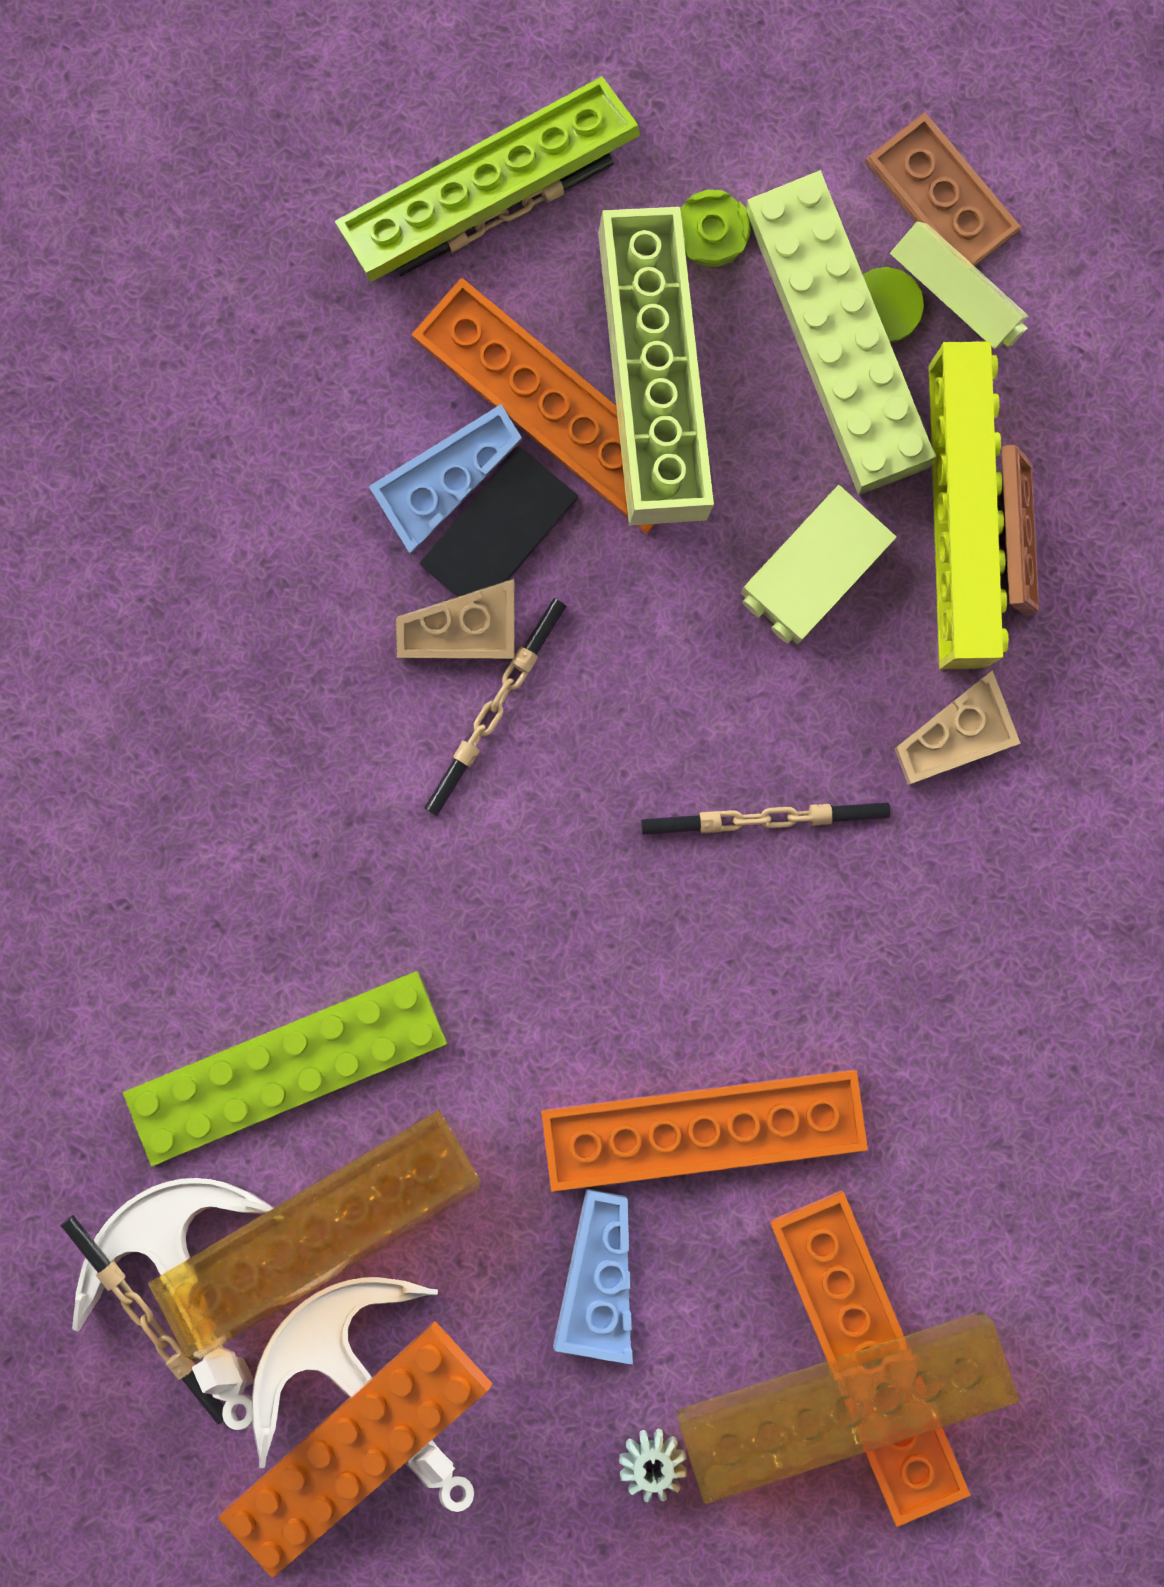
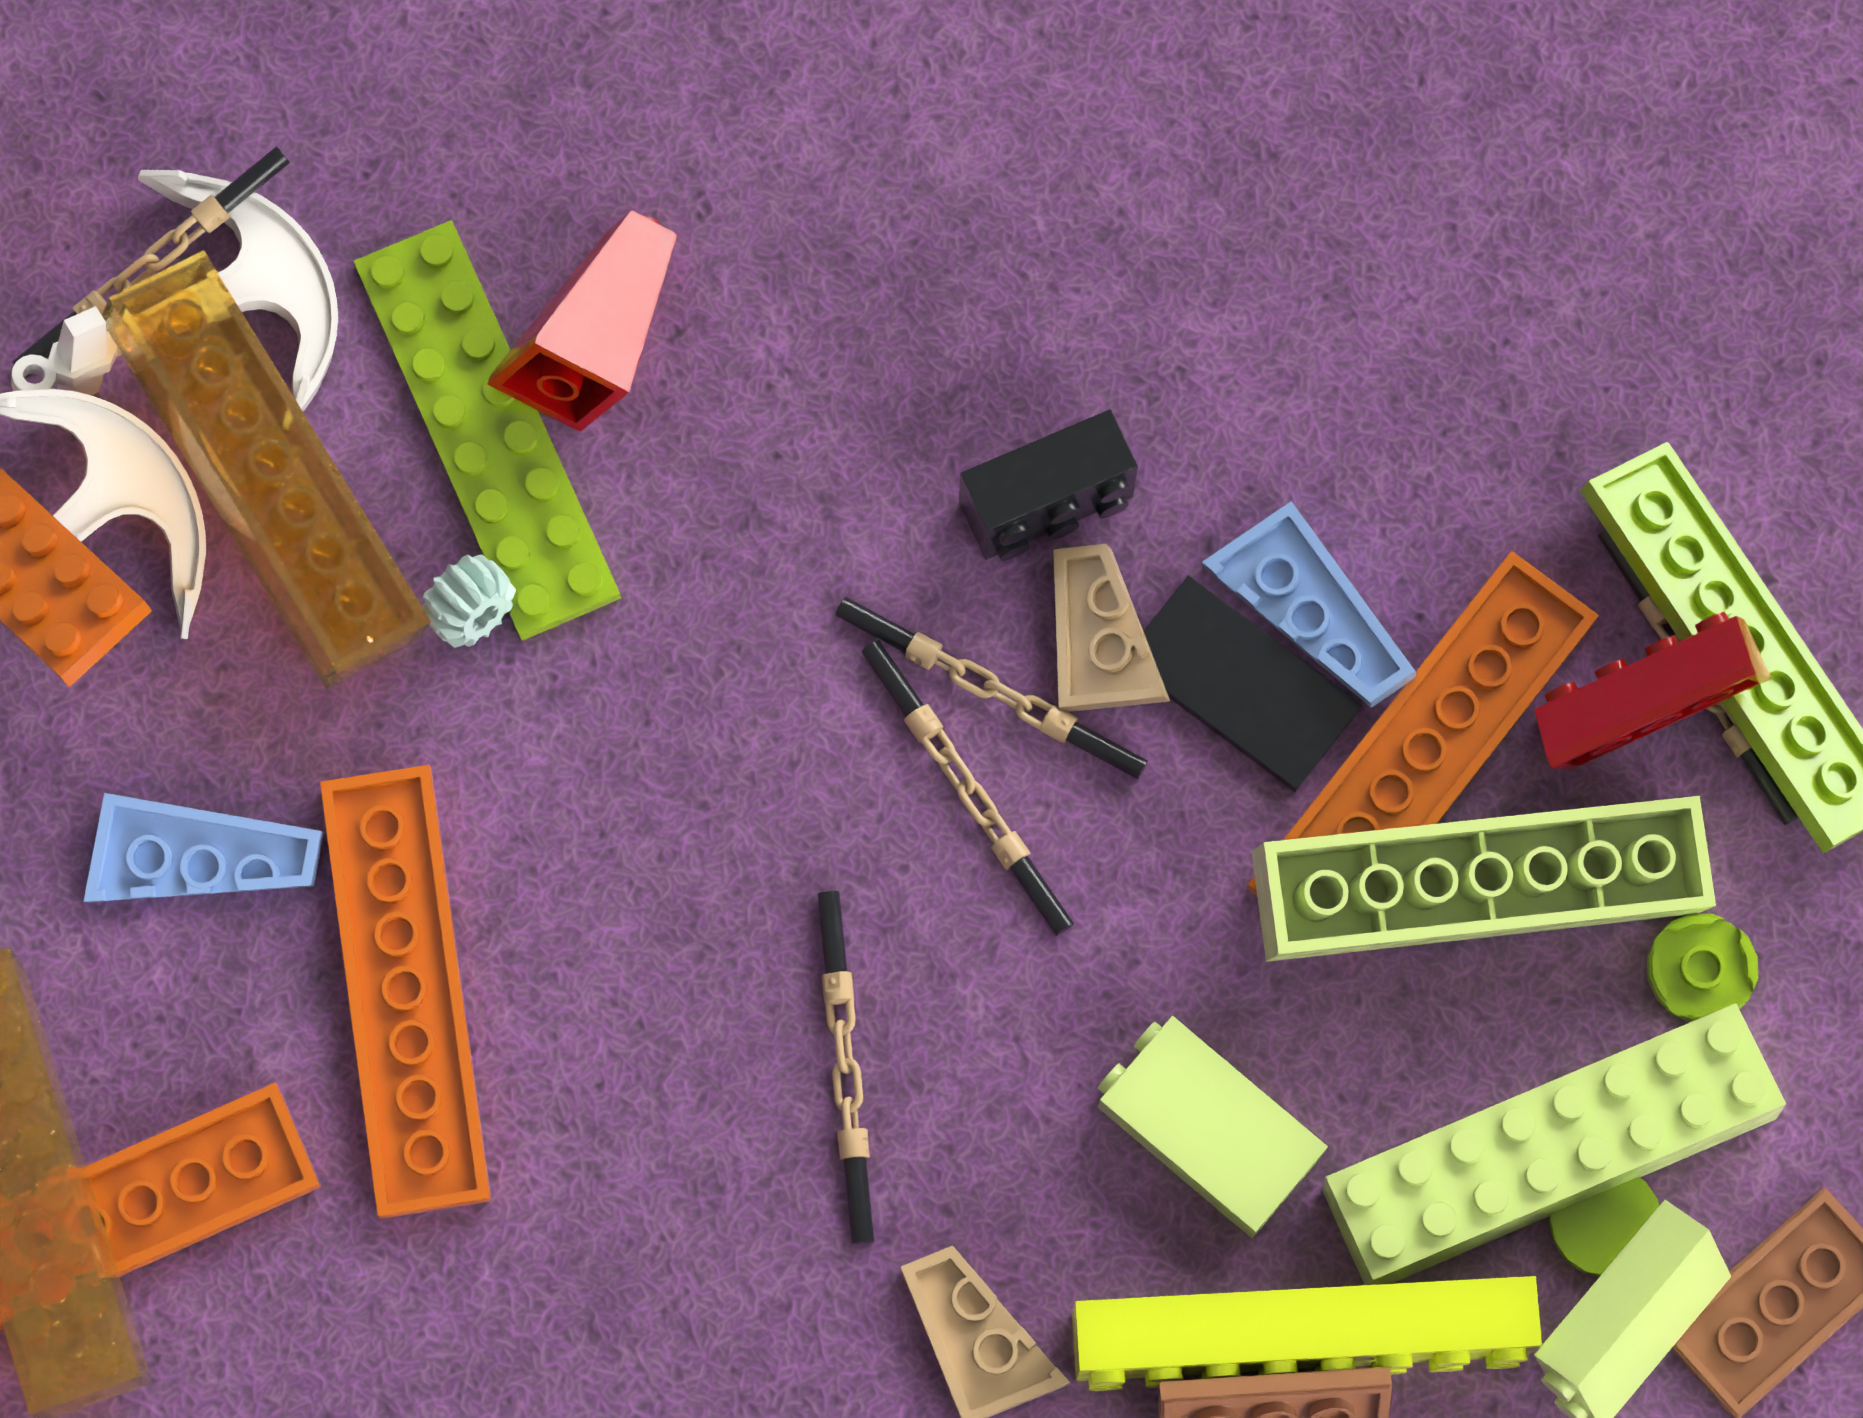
camera: 90 degrees right, 10 degrees down
(218, 987) = (592, 332): none -> slope
(353, 655) = (1048, 486): none -> black brick
(421, 1082) = (468, 600): none -> light aqua gear
(522, 755) = (1009, 848): none -> piece
(527, 237) = (1650, 693): none -> red slope

